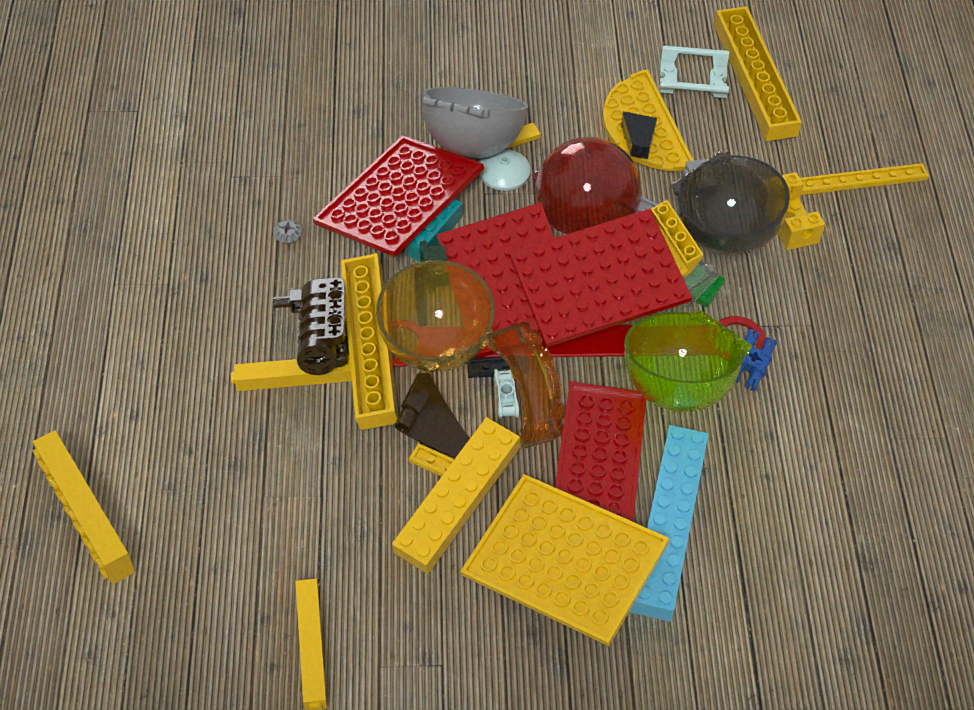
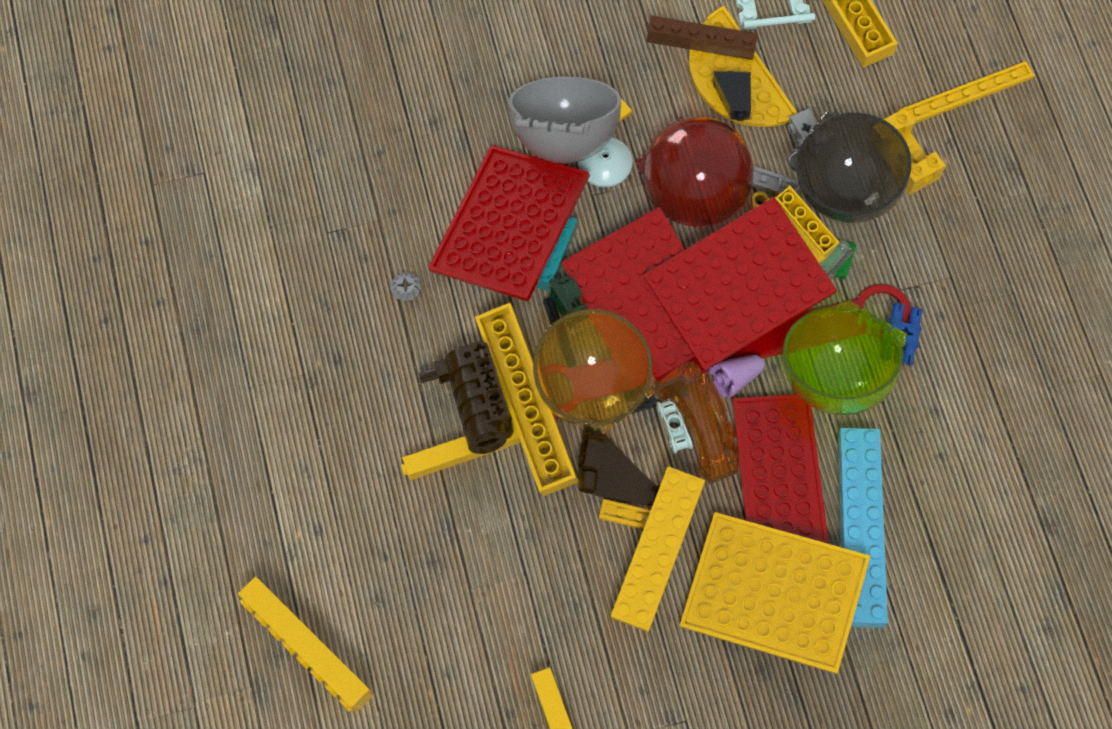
camera: 10 degrees left, 15 degrees up
(578, 359) = (736, 373): none -> lavender cone
(620, 86) = (702, 37): none -> reddish brown brick

